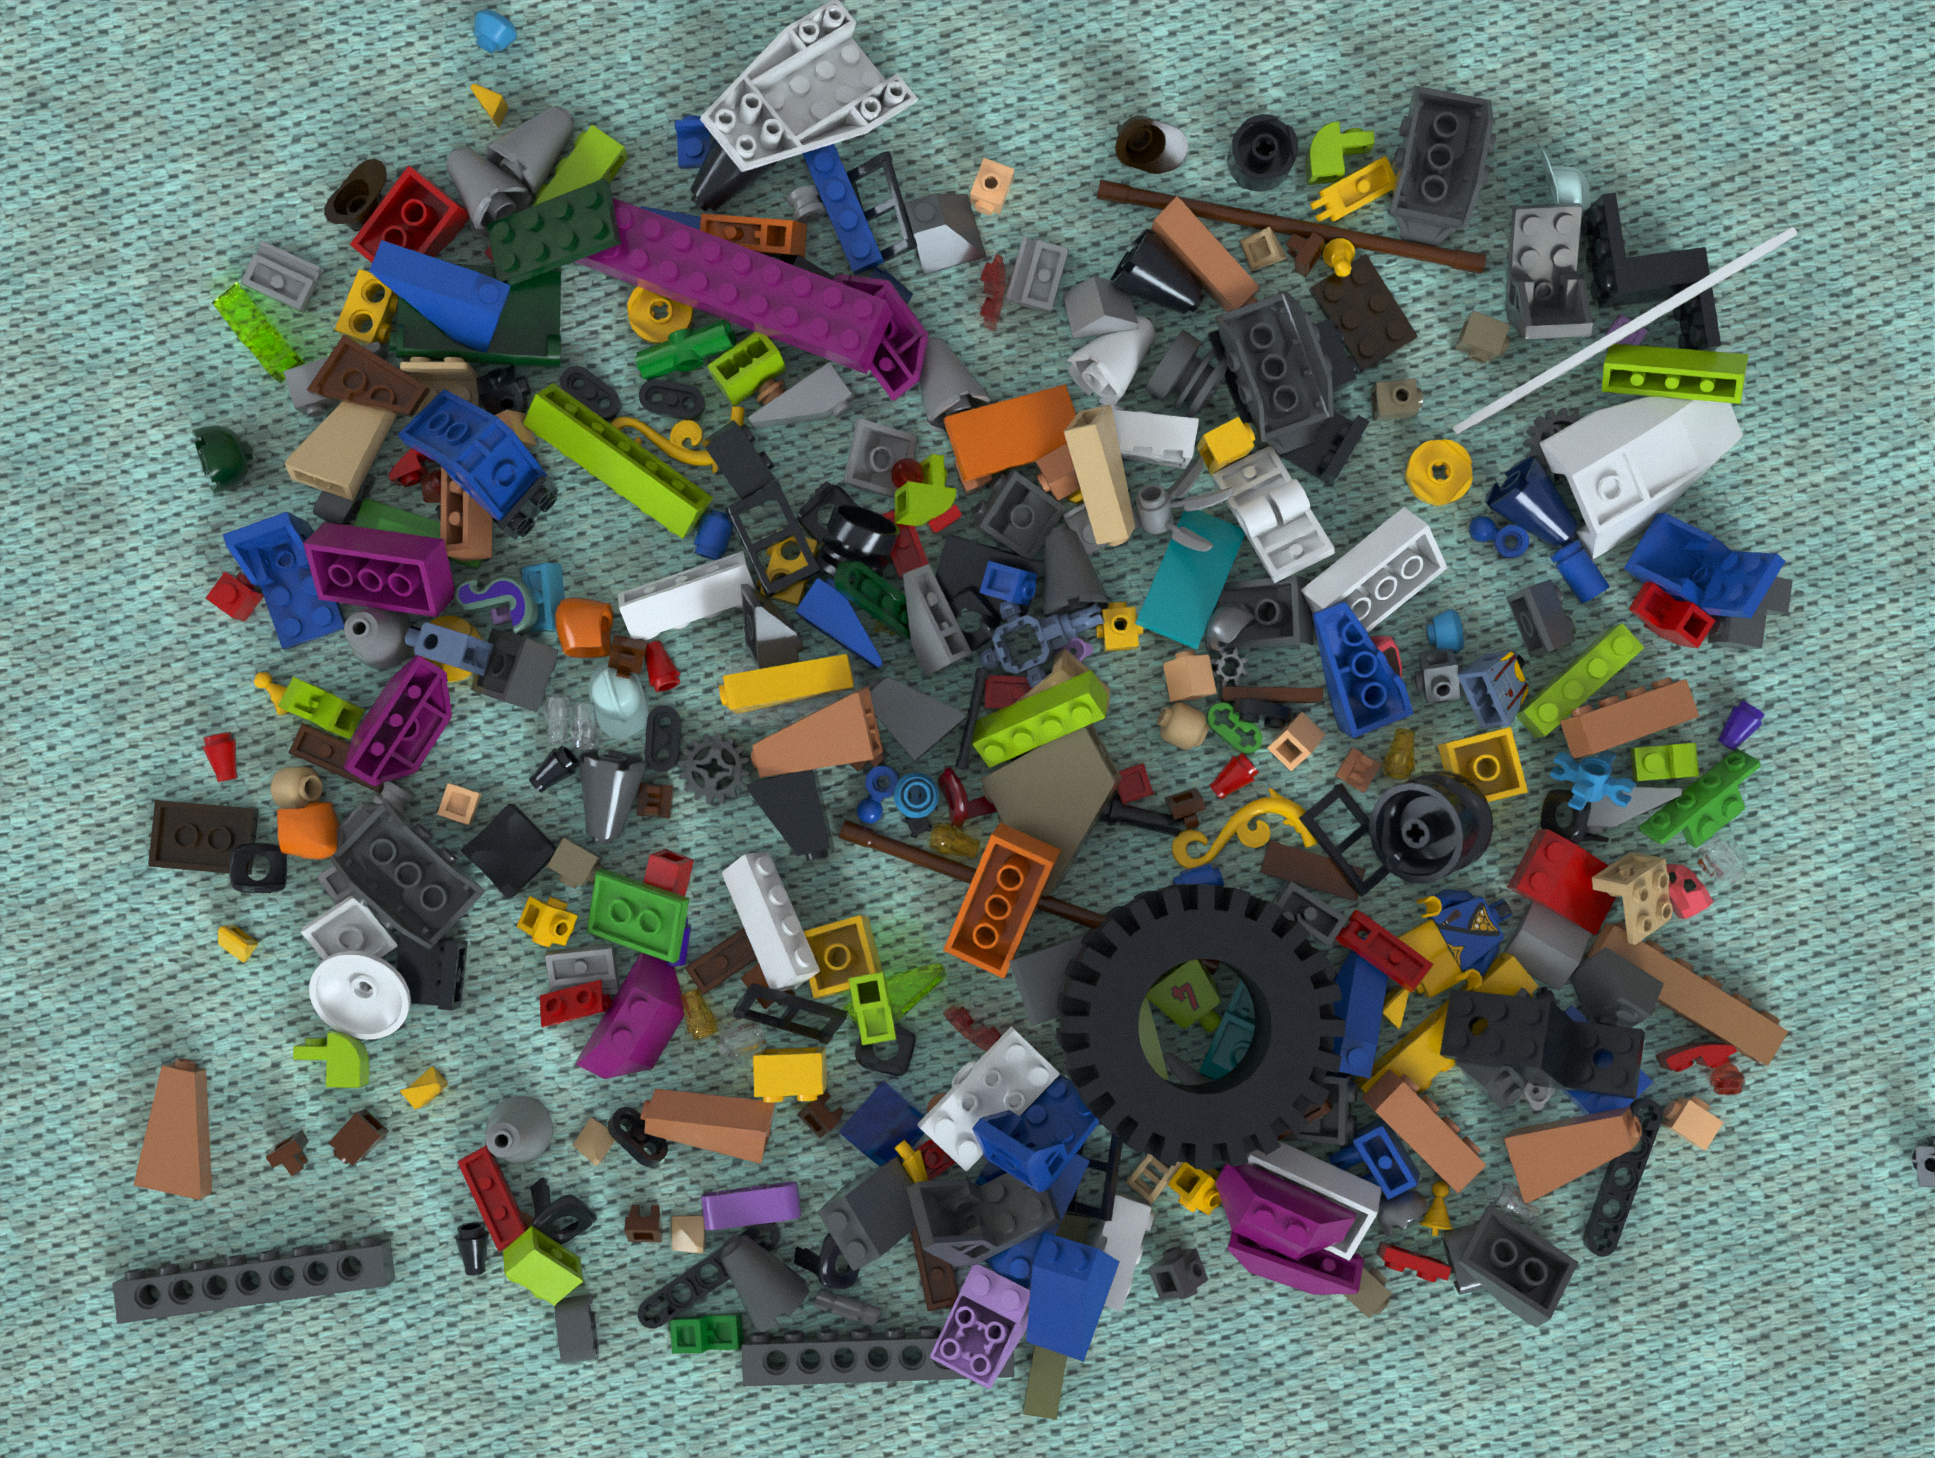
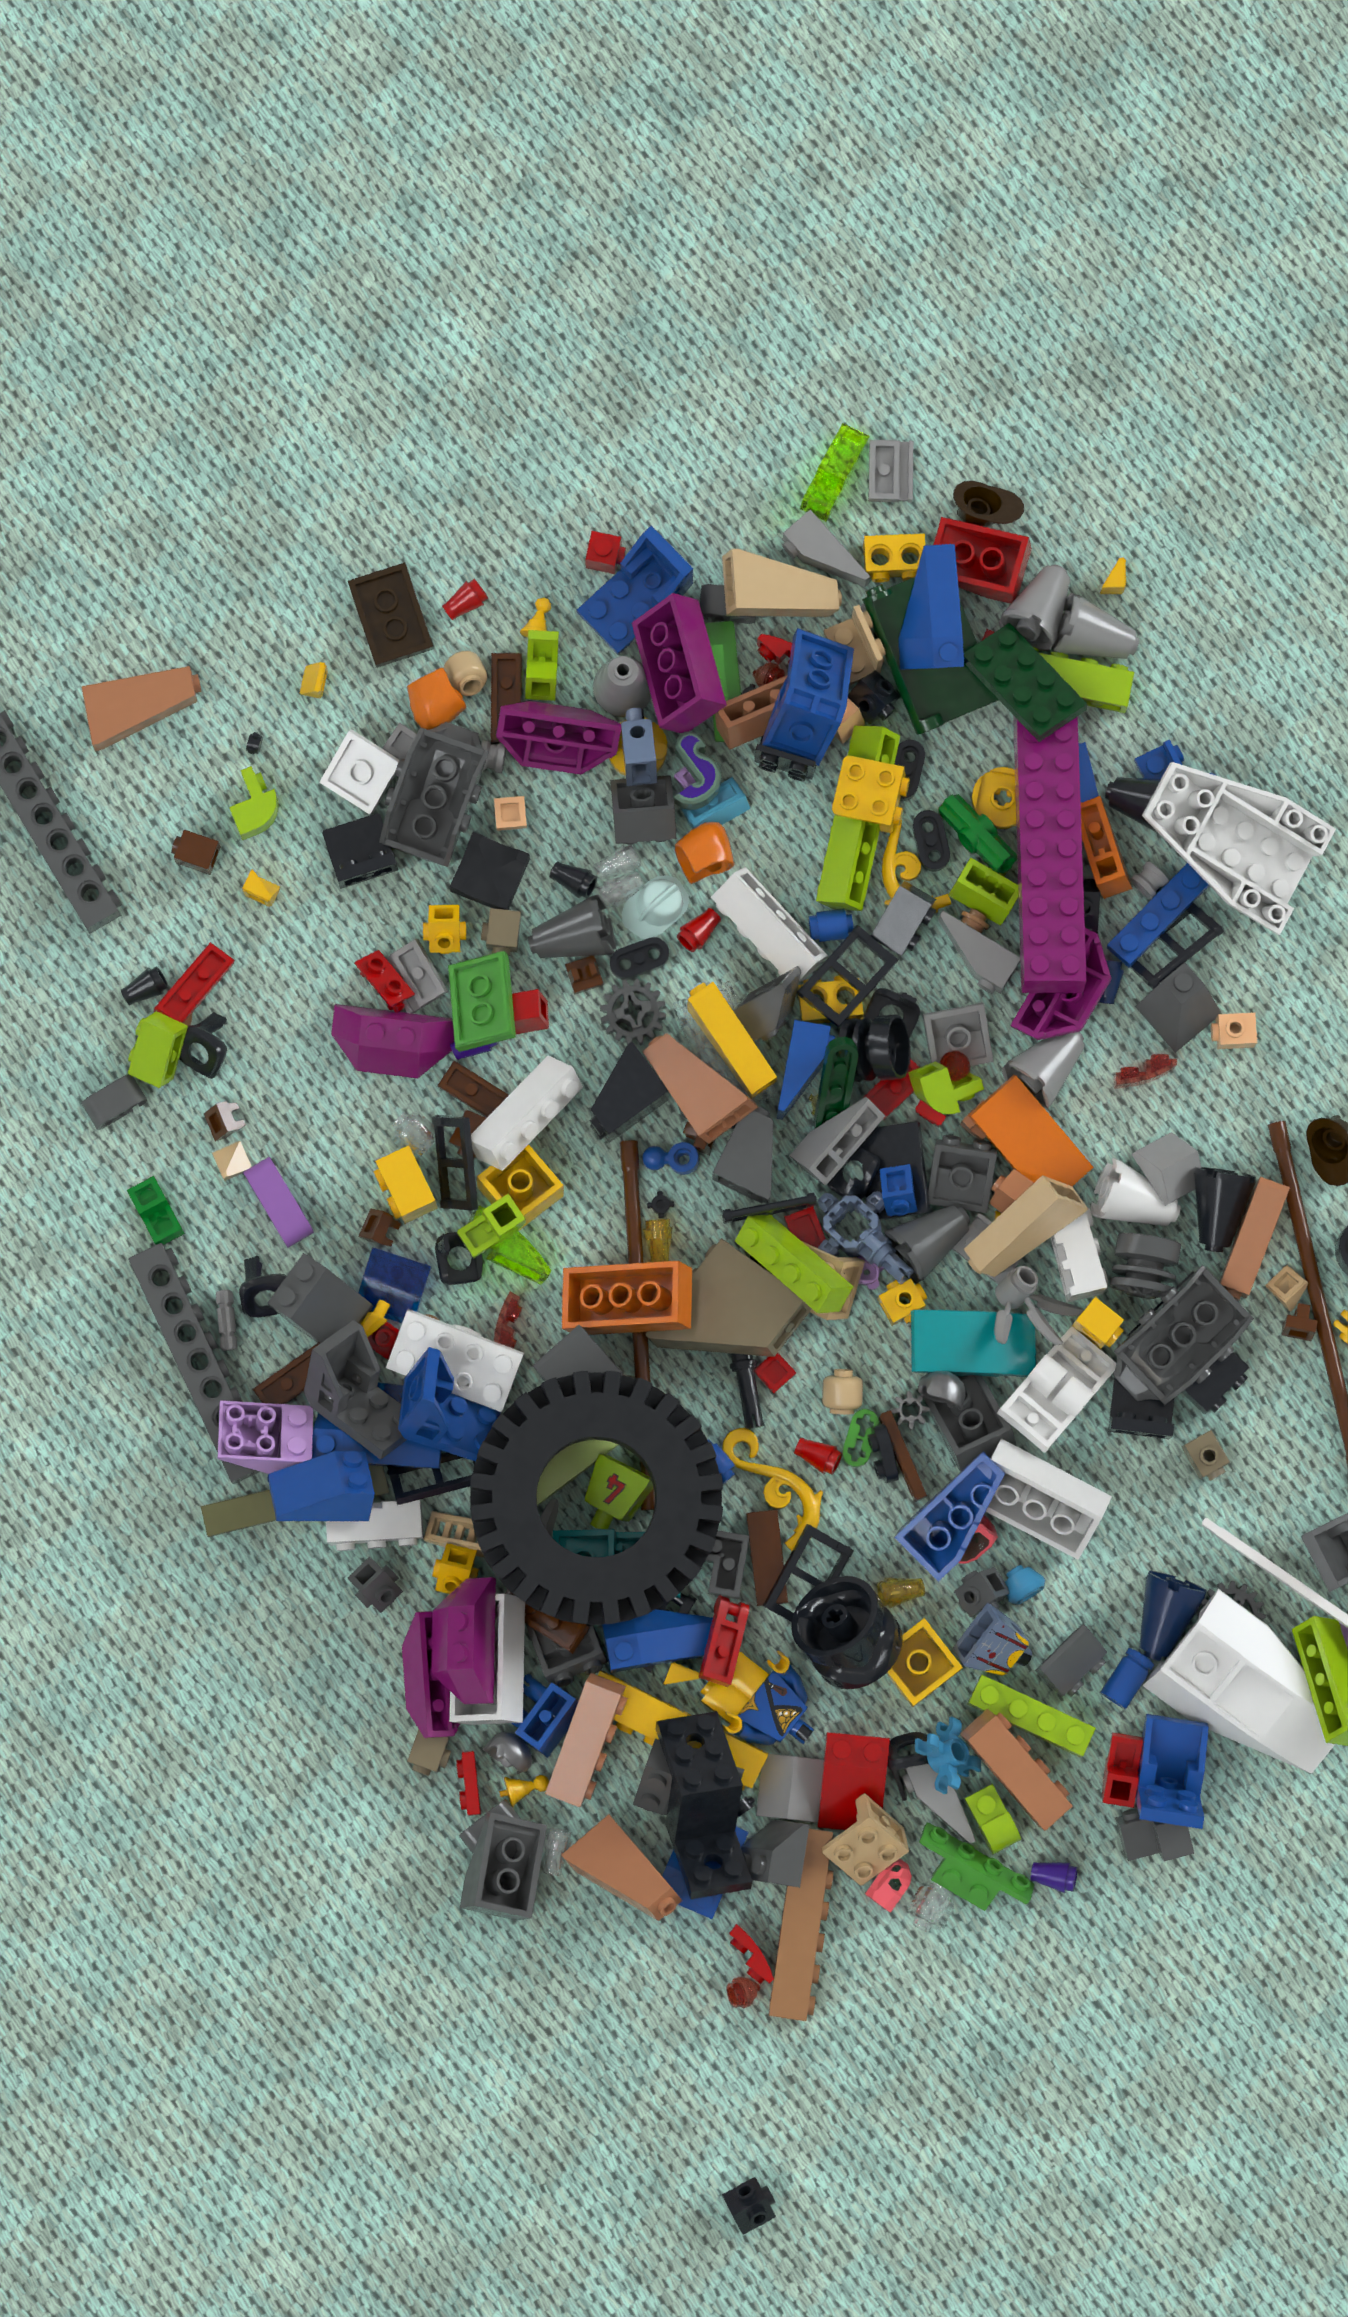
camera: 65 degrees right, 5 degrees down
(222, 456) = (715, 490): dark green cylinder -> none
(273, 1031) = (254, 743): none -> black piece
(275, 879) = (384, 689): black piece -> none
(289, 1153) = (159, 801): reddish brown tile -> none
(353, 1006) = (304, 799): white dish -> none
(367, 380) = (832, 583): reddish brown wing -> none
(493, 31) = (1178, 554): dark azure cone -> none
(518, 1129) = (258, 991): light grey cone -> none
(594, 1141) = (276, 1049): tan slope -> none
(596, 435) = (870, 792): none -> yellow bracket
(627, 655) = (696, 897): reddish brown tile -> none
(634, 1138) = (295, 1082): black plate -> none
(692, 1278) = (195, 1181): black beam -> none
(698, 1015) = (417, 1090): clear yellow cone -> none
(710, 1122) = (335, 1138): nougat slope -> none
(762, 1281) = (222, 1235): dark grey cone -> none
(913, 784) = (693, 1185): dark azure cone -> none
(956, 798) = (687, 1233): dark red piece -> none
(1037, 275) = (1177, 1102): light grey plate -> none
(1185, 806) = (775, 1424): reddish brown tile -> none
(1189, 676) = (886, 1378): light nougat brick -> none
(1296, 741) = (871, 1493): light nougat brick -> none
(1339, 255) = (1311, 1354): yellow piece -> none
(1357, 770) = (871, 1560): nougat tile -> none
(1364, 312) = (1271, 1397): dark brown plate -> none
(1438, 453) = (1176, 1513): yellow plate -> none
(1483, 338) = (1293, 1509): dark tan brick -> none
(1484, 529) = (1127, 1580): blue plate -> none
(1537, 1099) = (653, 1834): white plate -> none
(1623, 1194) = (604, 1941): black beam -> none
(1691, 1121) = (693, 1973): light nougat brick -> none

